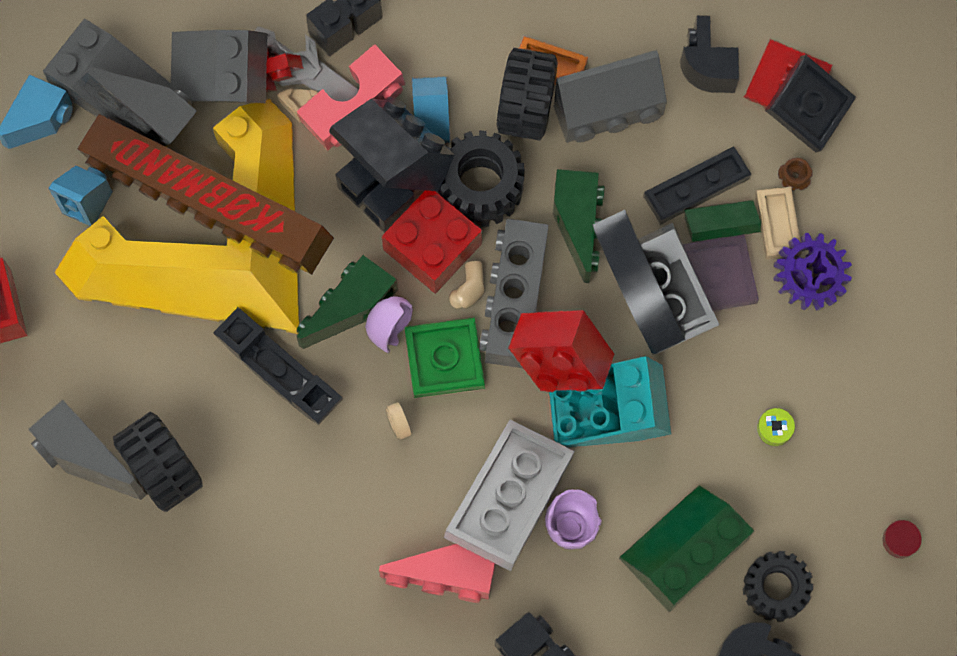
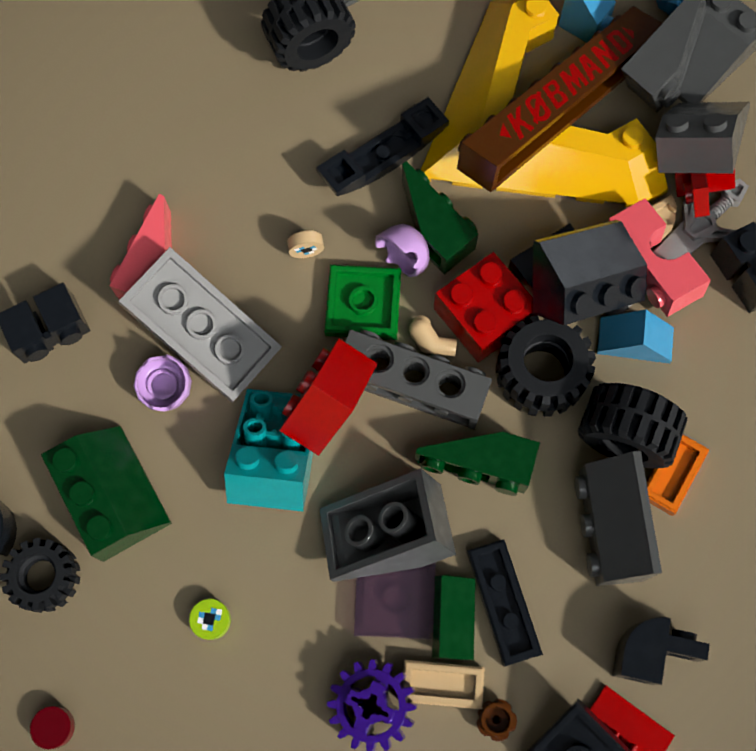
camera: 105 degrees right, 0 degrees up
(638, 282) = (390, 492): black slope -> none

